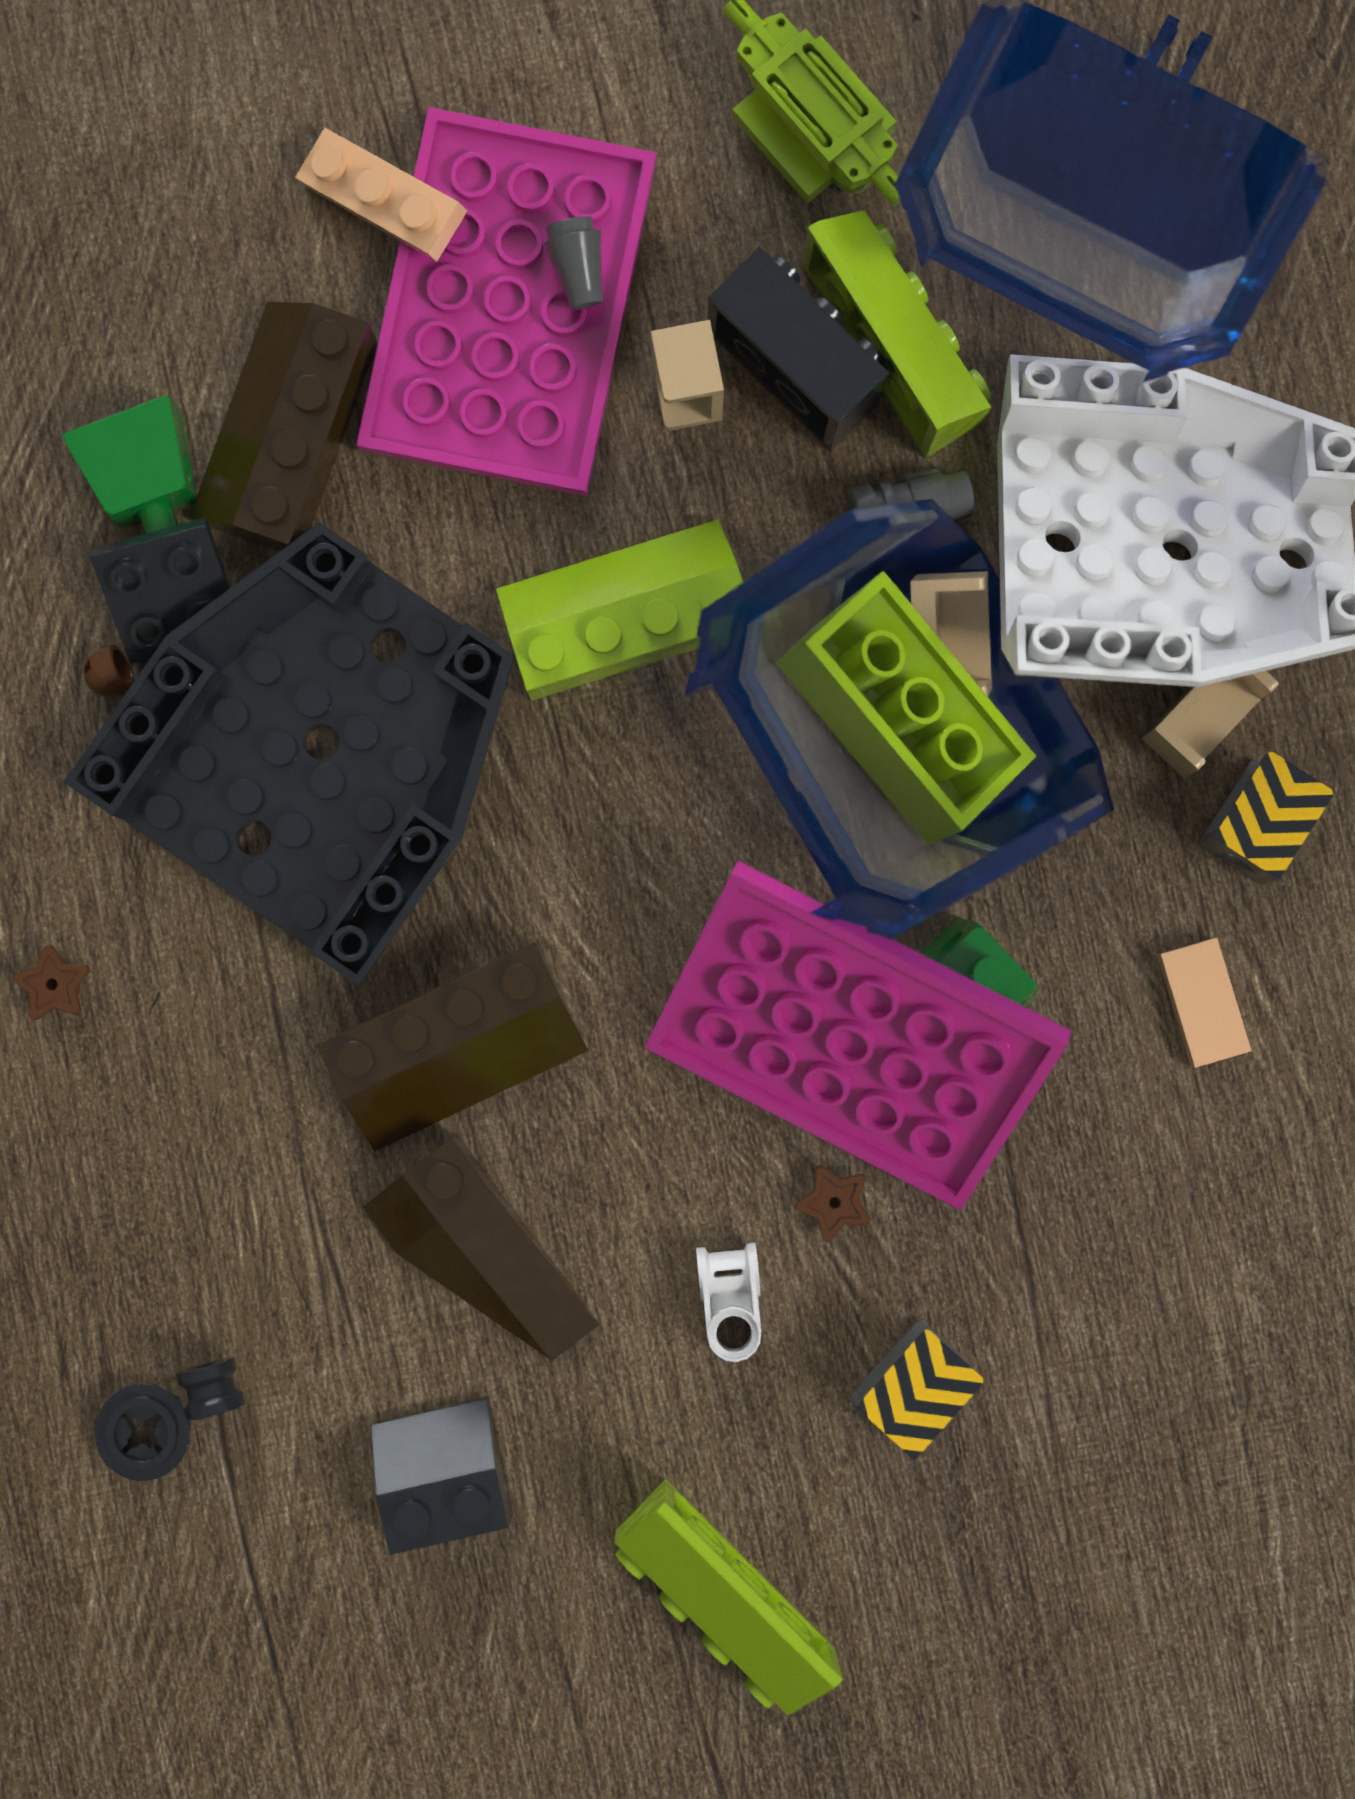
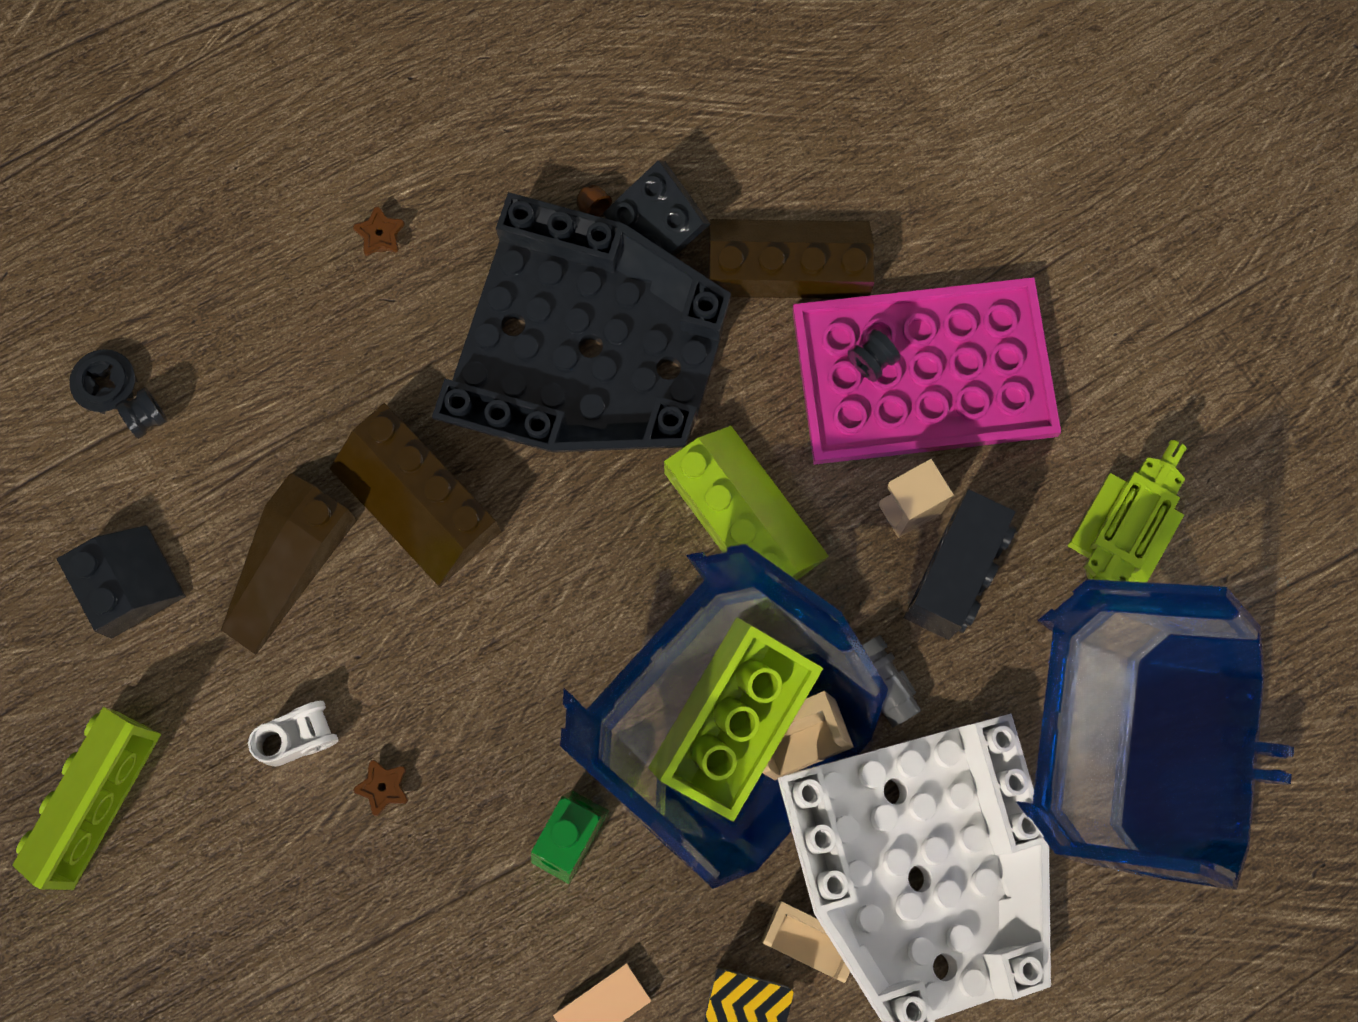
camera: 70 degrees right, 10 degrees down
(137, 463) = (733, 175): green torso -> none
(381, 194) = (964, 266): light nougat plate -> none
(471, 359) = (873, 355): none -> black wheel
(576, 257) = (967, 401): dark grey cone -> none
(855, 1037) = (494, 758): dark pink plate -> none
(916, 1389) = (265, 885): piece -> none
(926, 380) = (999, 631): lime slope -> none

